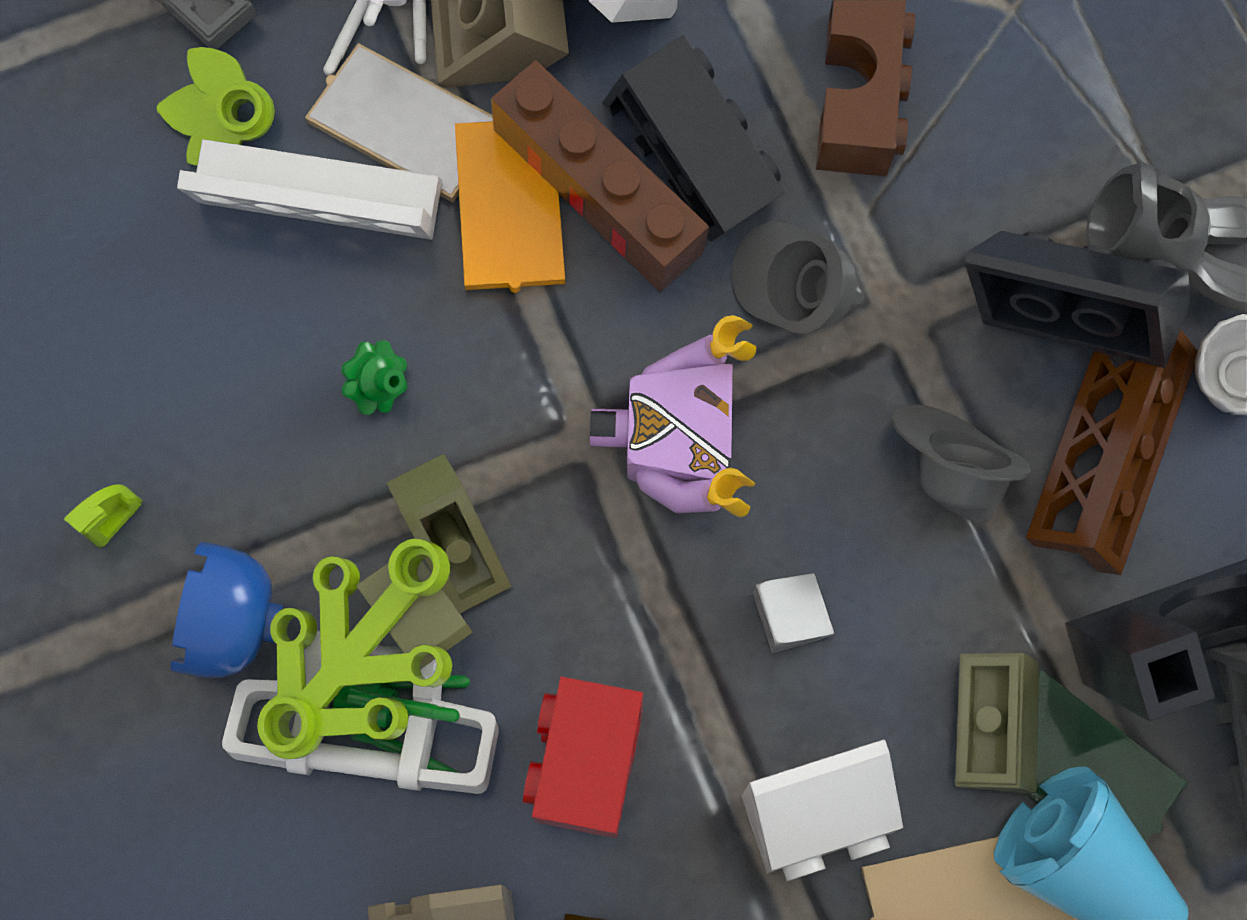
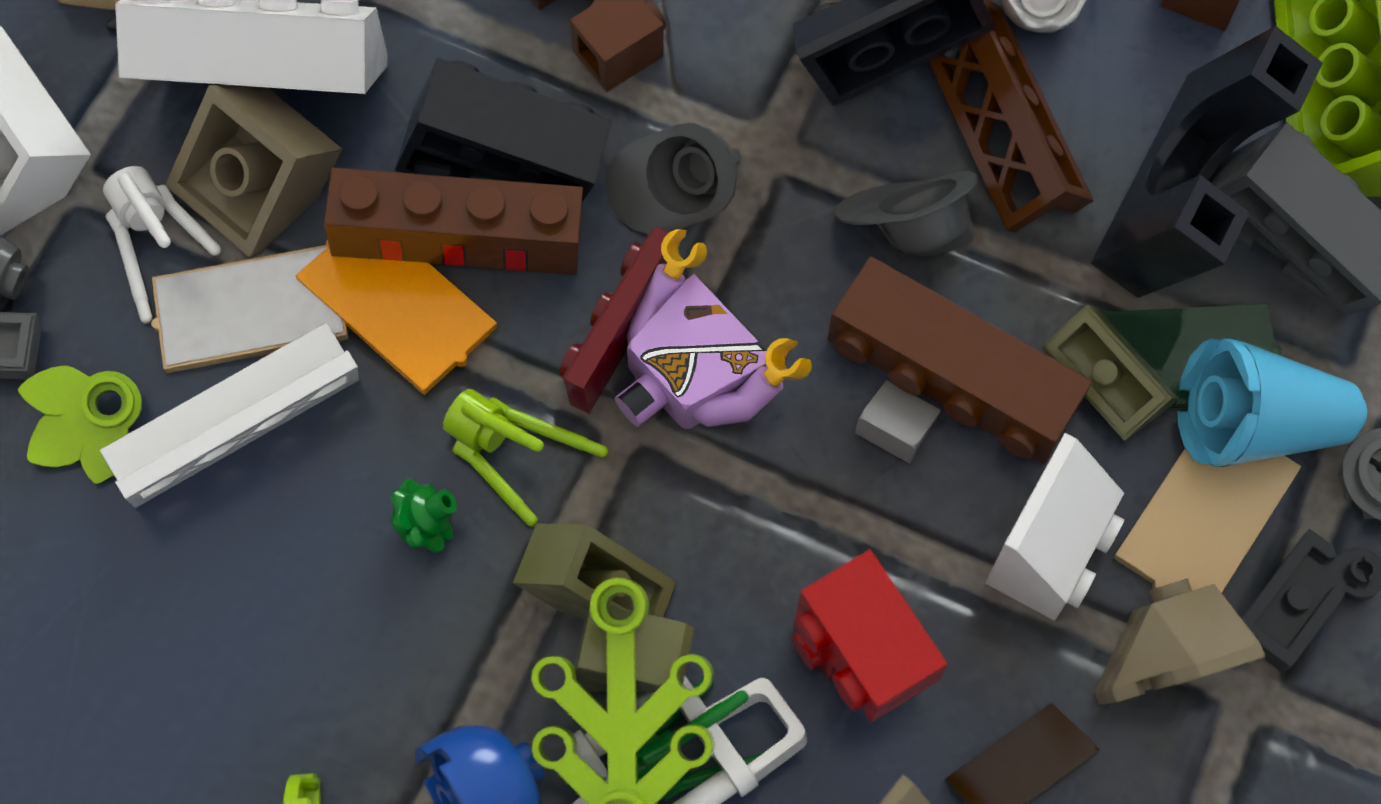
camera: 45 degrees left, 5 degrees down
(479, 349) = (485, 425): none -> lime plant
(601, 369) = (591, 365): none -> dark red tile
(879, 606) = (957, 360): none -> reddish brown brick

